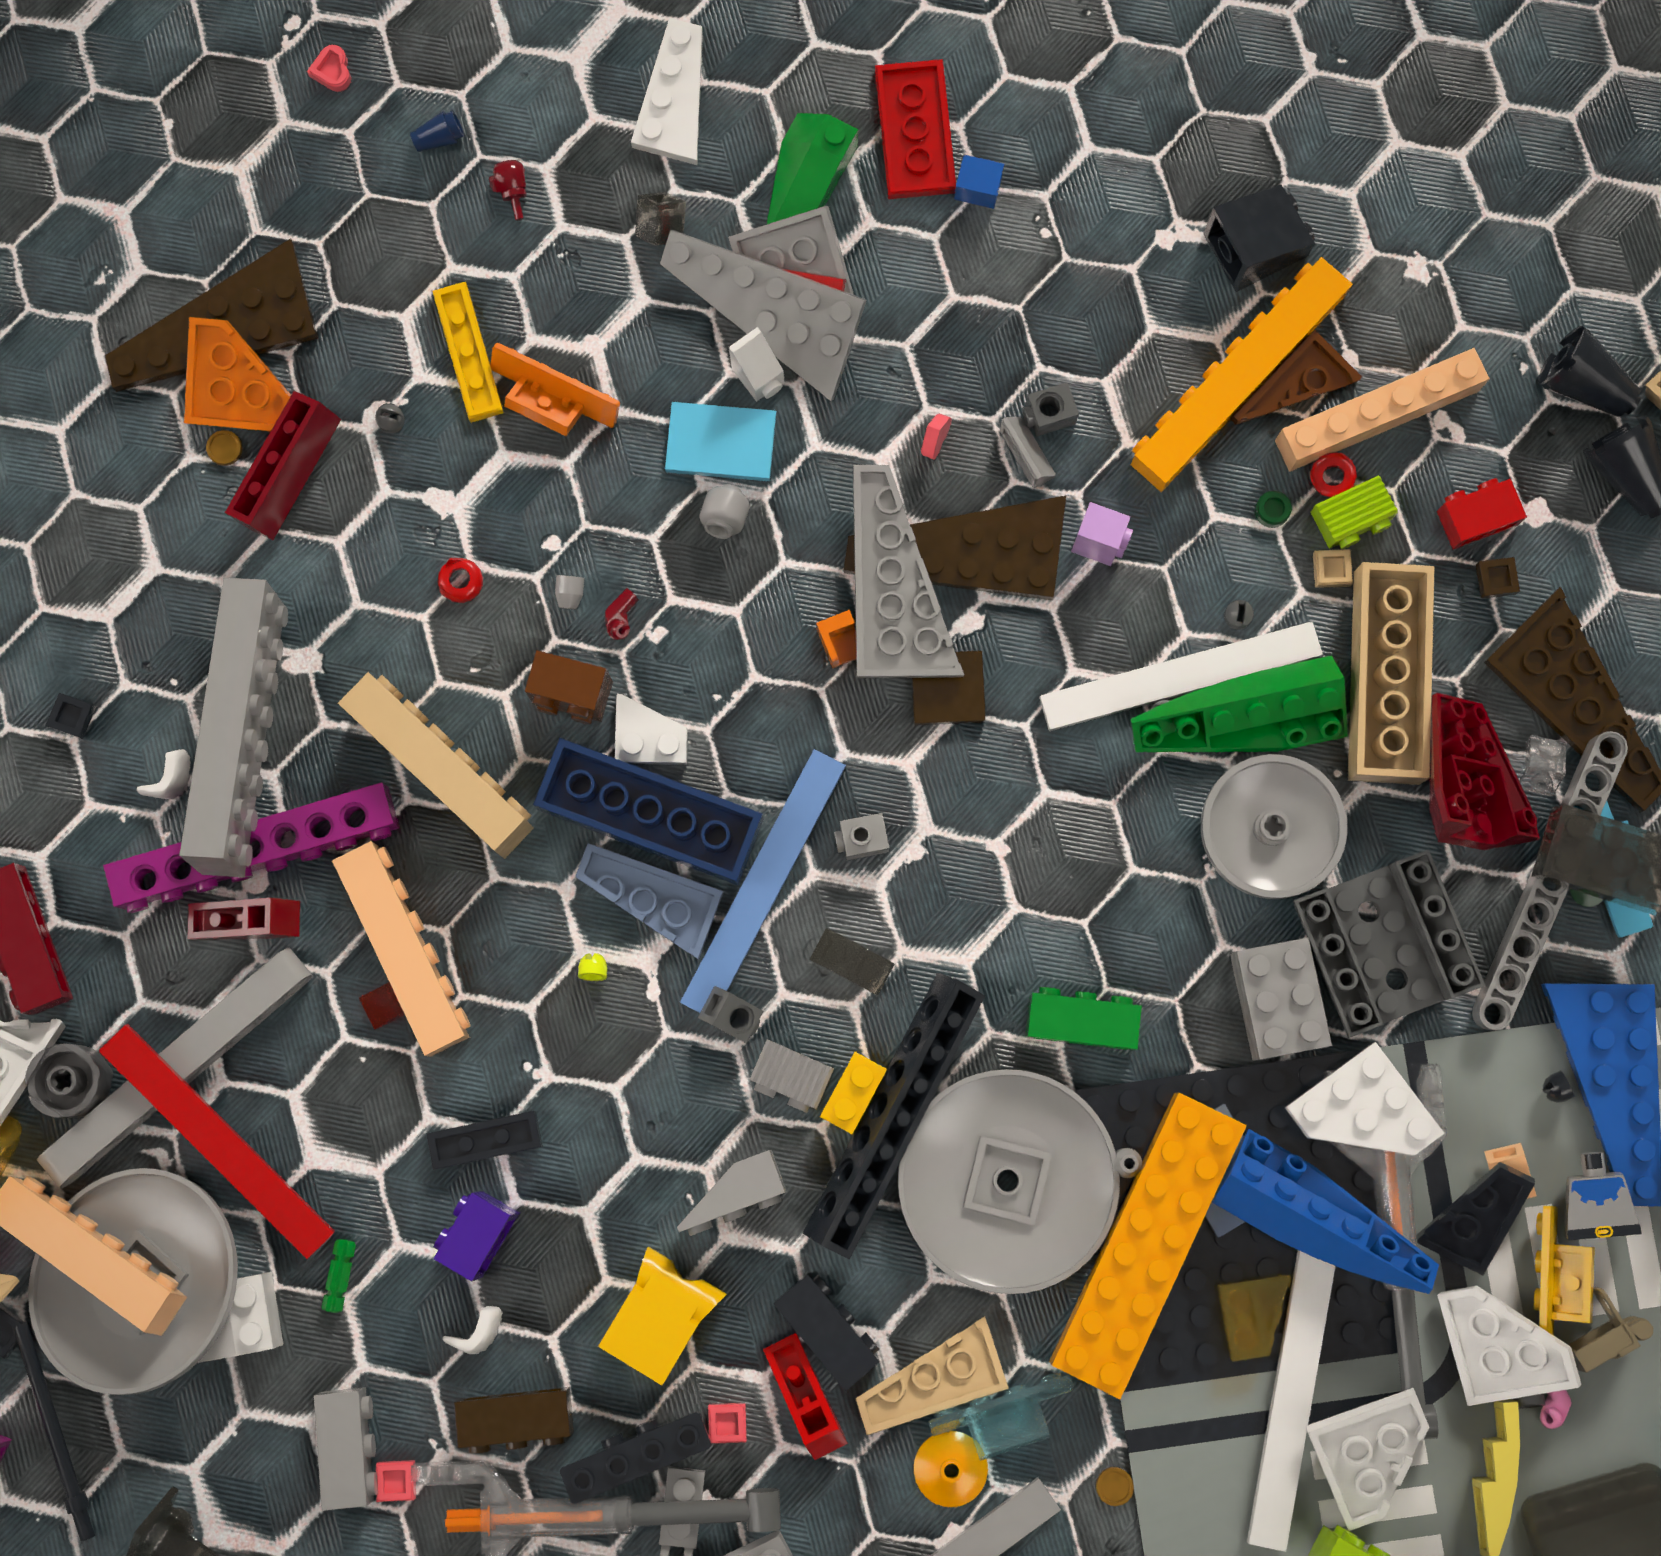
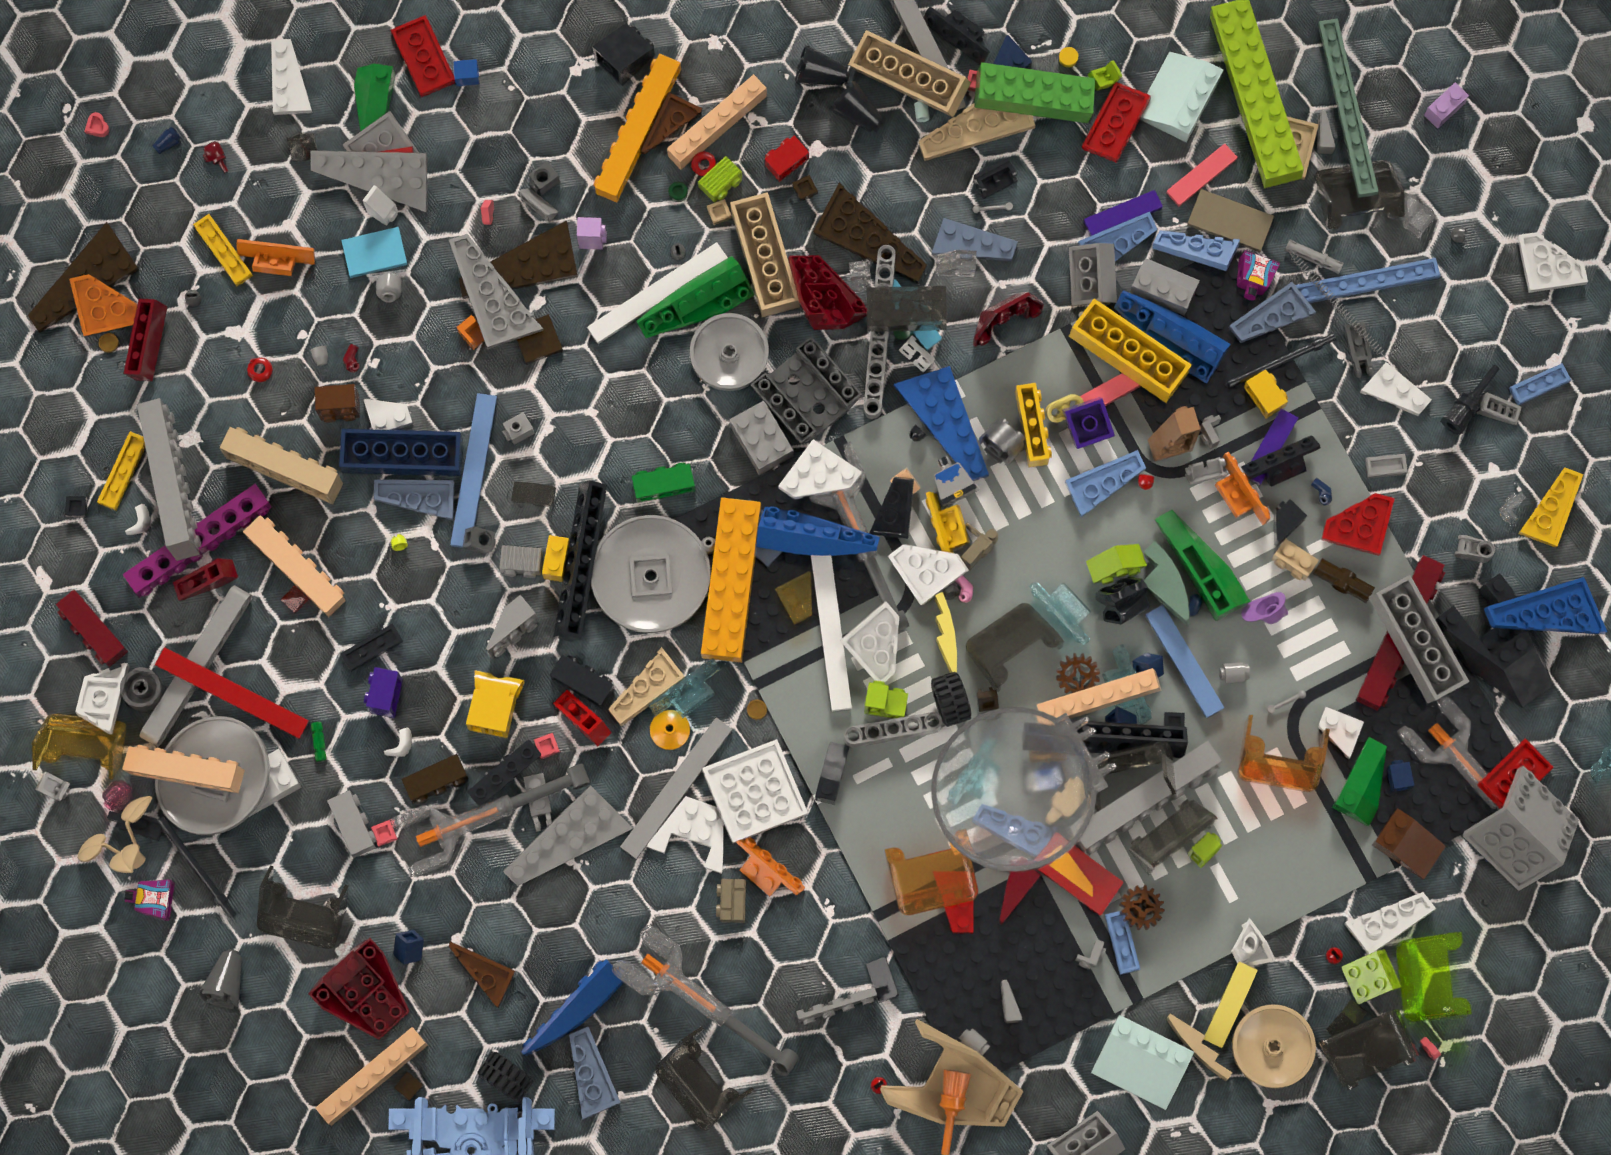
camera: 20 degrees left, 5 degrees down
(167, 682) = (122, 471): none -> yellow tile
(1591, 934) = (922, 351): none -> white piece

